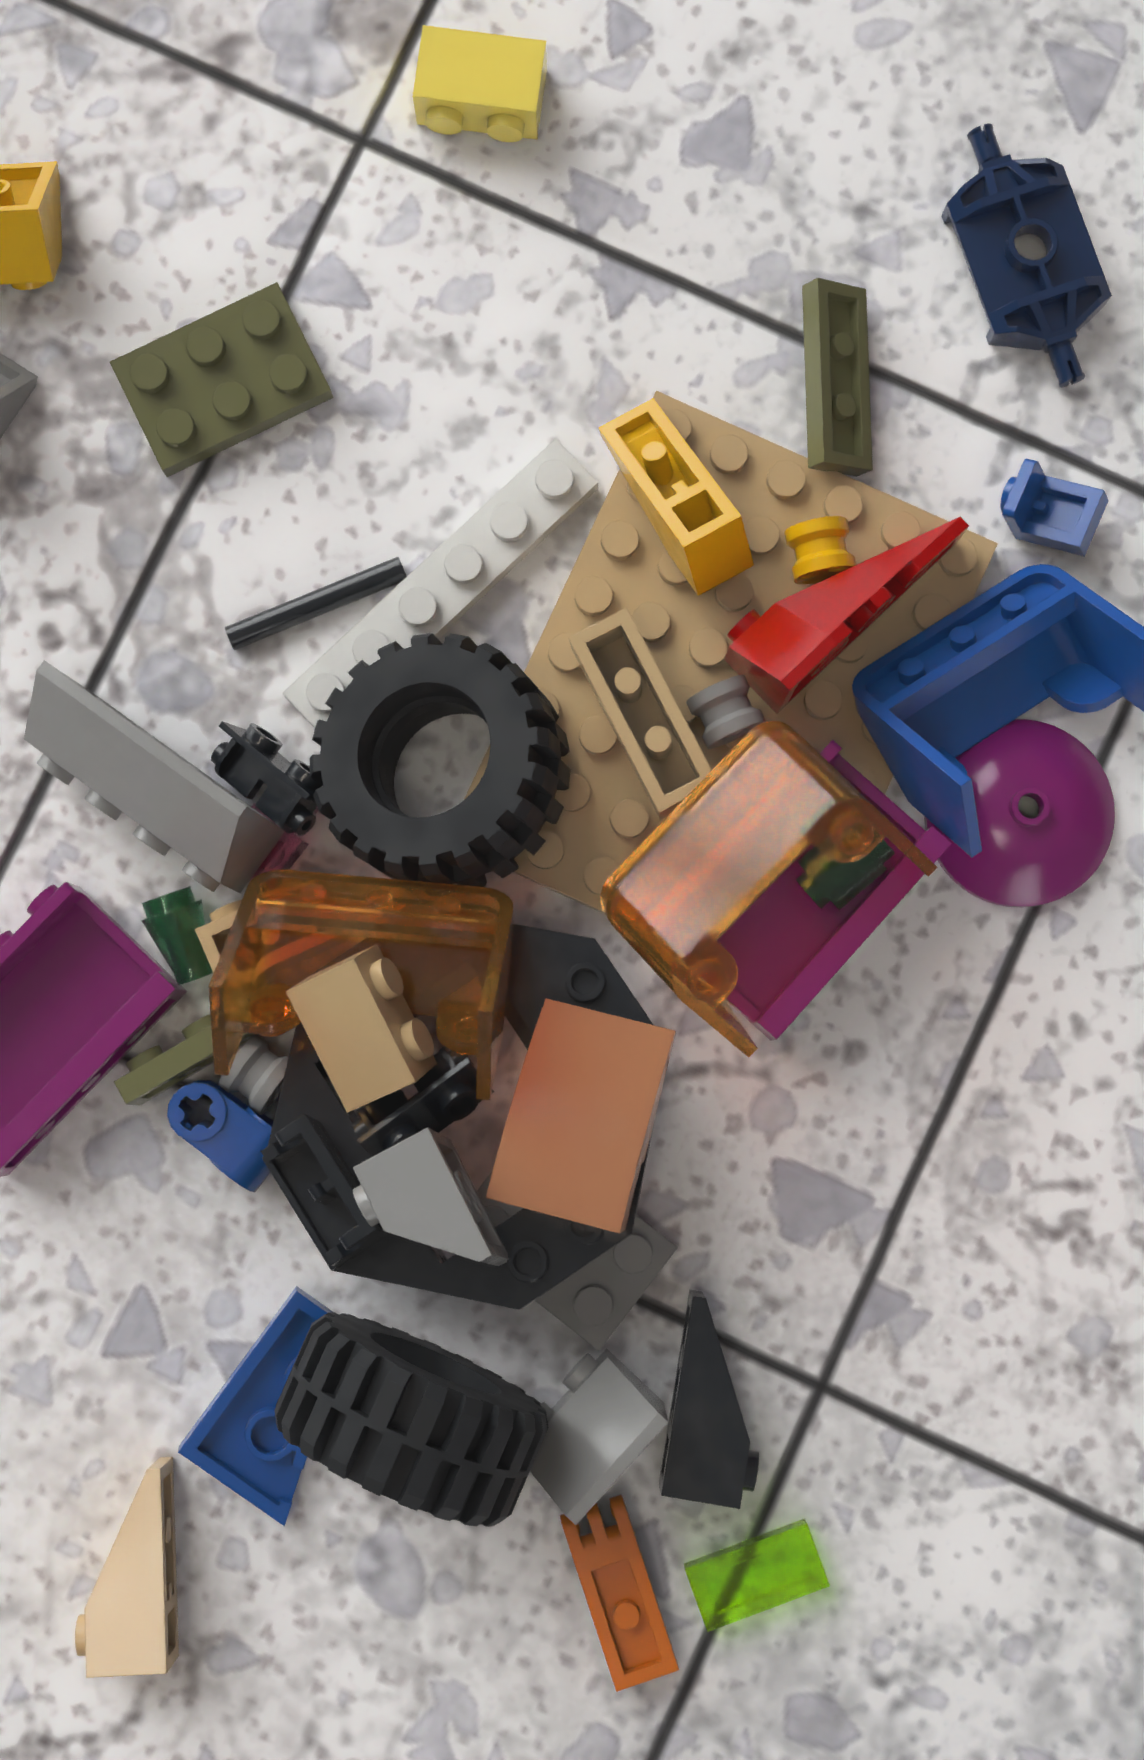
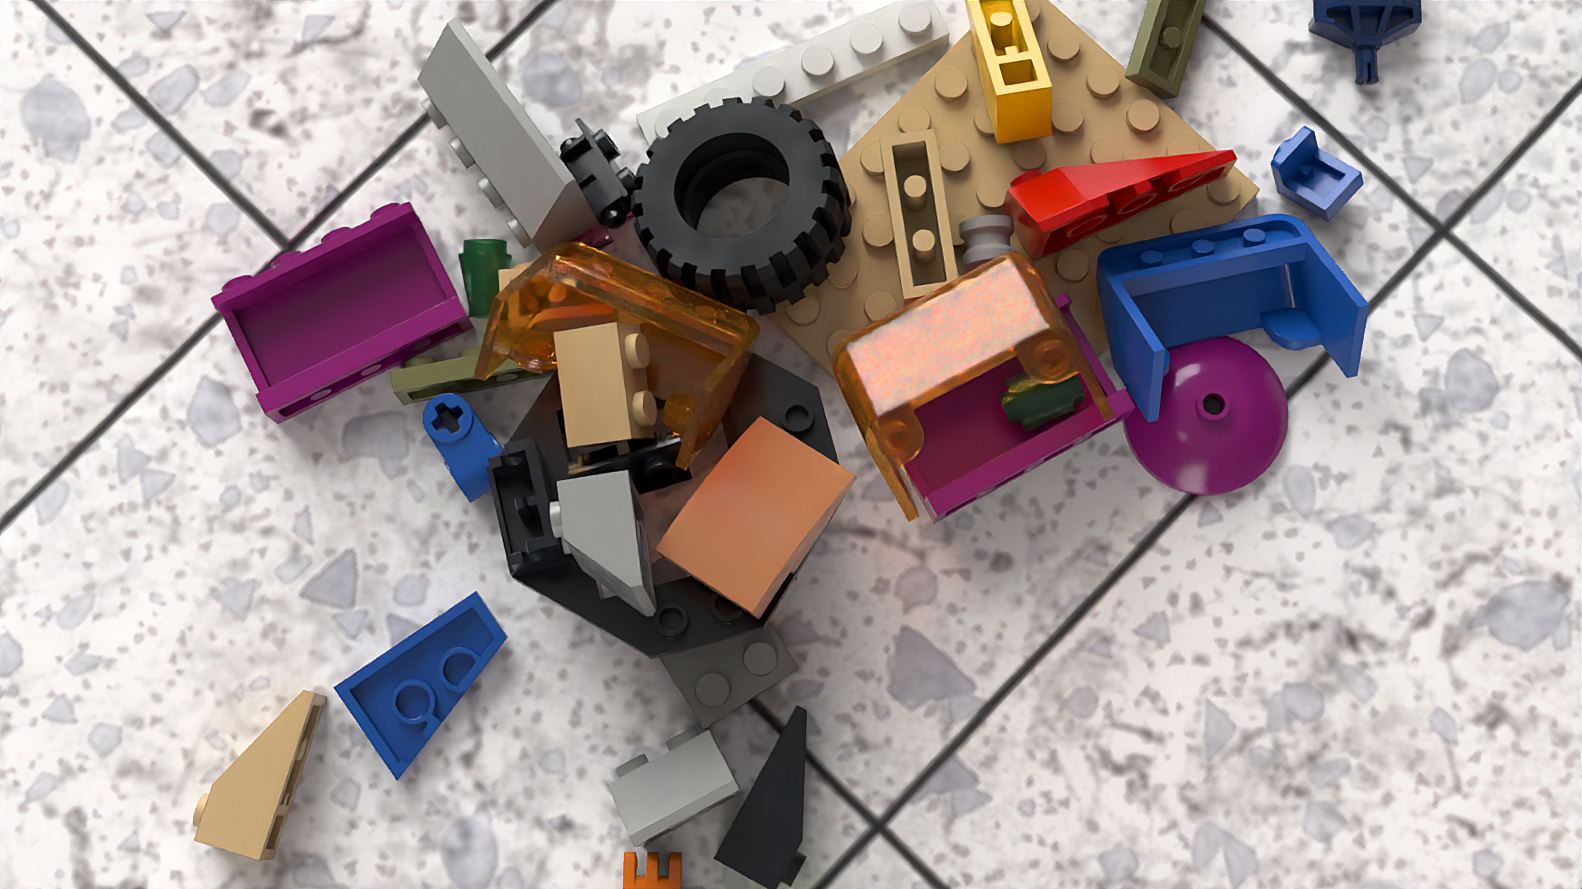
camera: 20 degrees right, 5 degrees down
(256, 1074) = (503, 406): light grey wheel -> none
(315, 603) = (687, 54): black bar -> none
(410, 1420) = (531, 714): black tyre -> none
(819, 548) = (1109, 137): yellow wheel -> none

